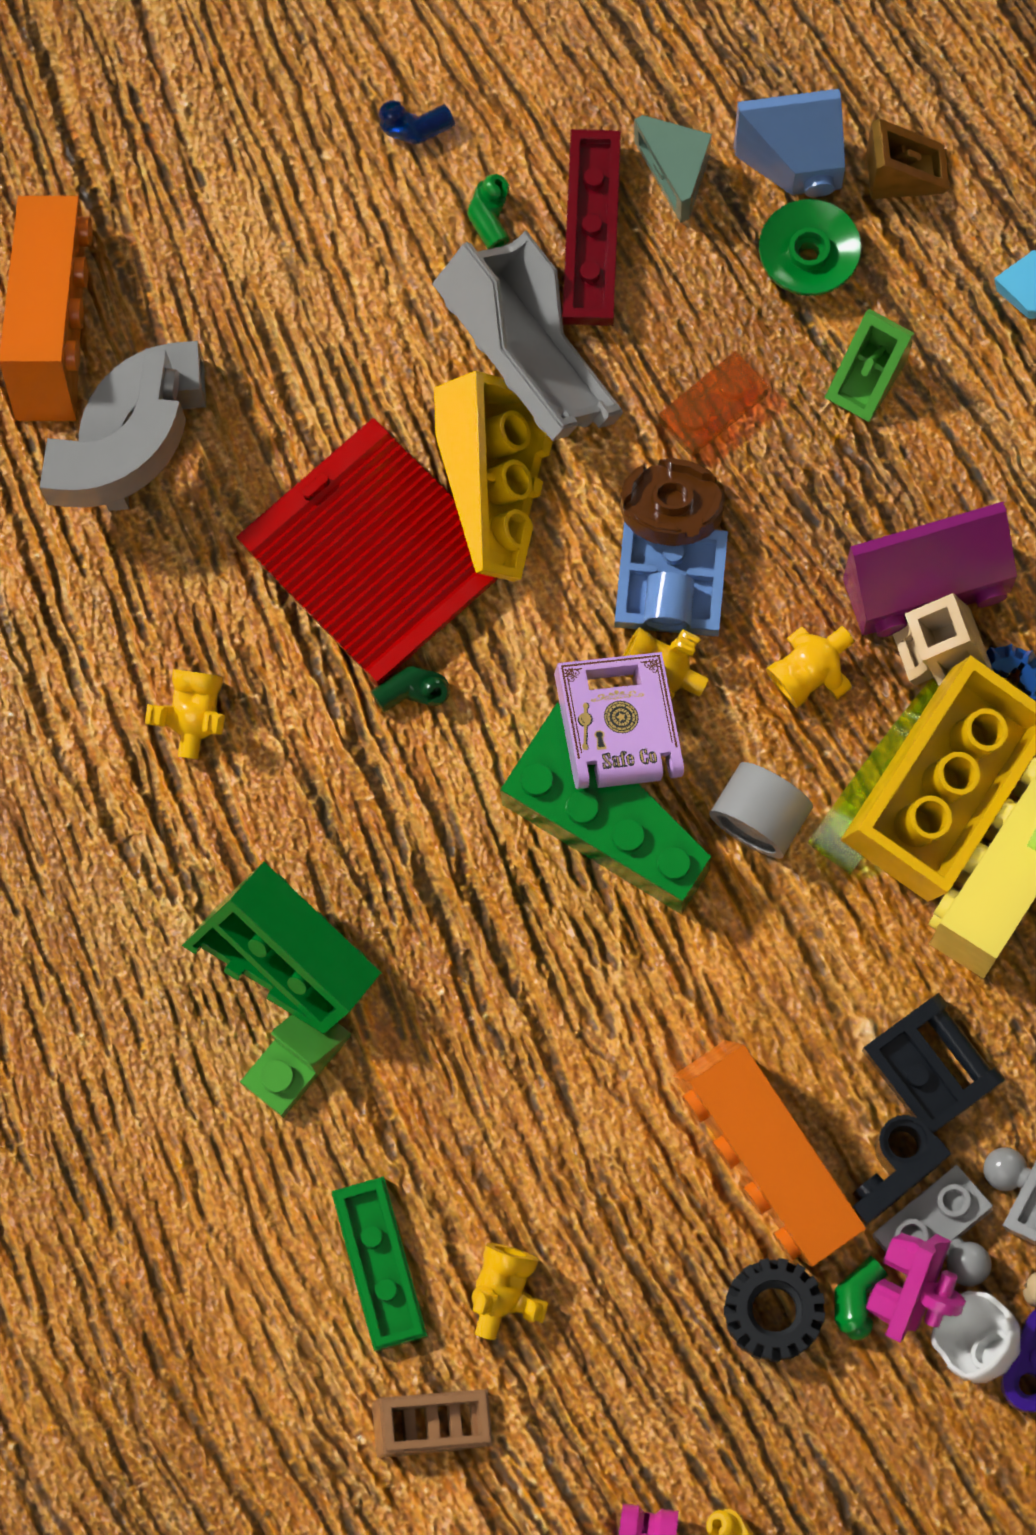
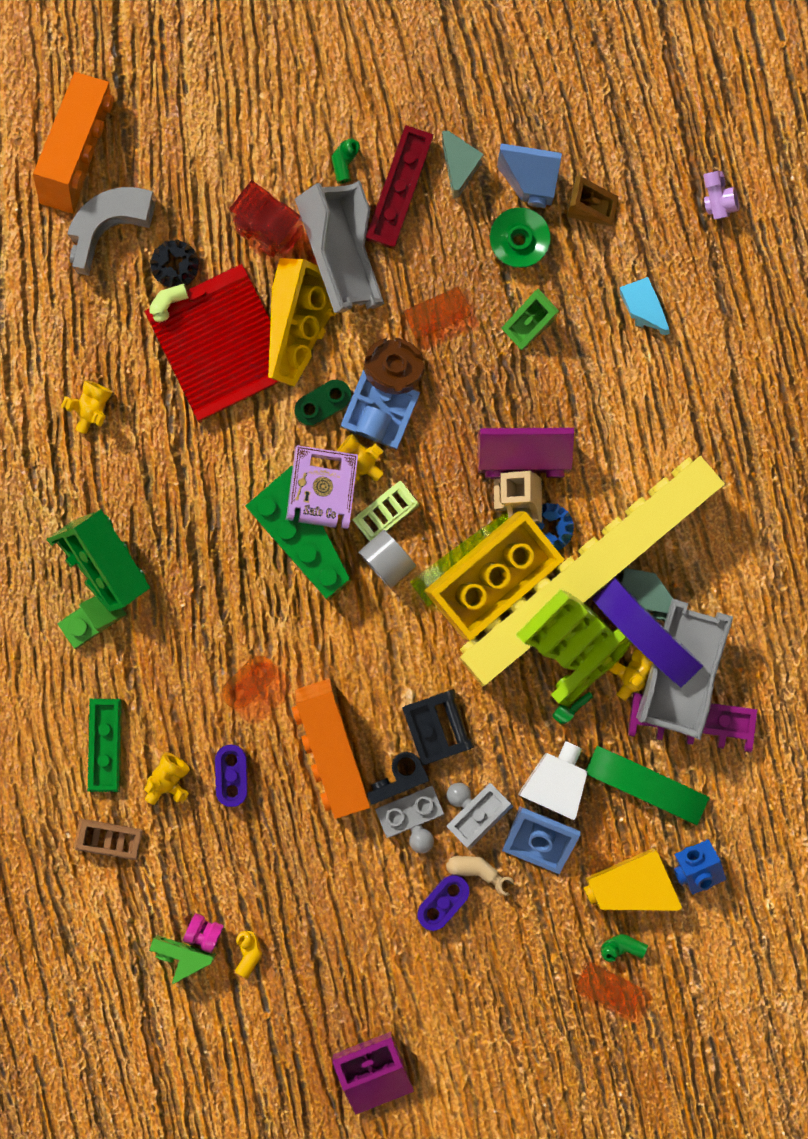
camera: 10 degrees right, 10 degrees up
(129, 458) = (92, 251): light grey arch -> none
(261, 471) = (188, 266): none -> black gear
(265, 508) = (164, 299): none -> yellowish green arm
(396, 333) = (266, 220): none -> clear red brick
(412, 128) = (316, 95): clear blue arm -> none
(414, 685) = (218, 427): dark green arm -> none
(576, 596) = (324, 405): none -> dark green plate
(592, 1084) = (249, 682): none -> clear orange plate
(612, 1249) = (231, 775): none -> dark purple plate
(758, 701) = (405, 494): none -> yellowish green slope
(807, 1300) = (308, 853): black tyre -> none
(812, 664) = (442, 483): yellow piece -> none
(852, 1299) = (352, 840): green arm -> none
(906, 1306) = (389, 849): dark pink hips -> none
(980, 1340) = (411, 882): white hair -> none

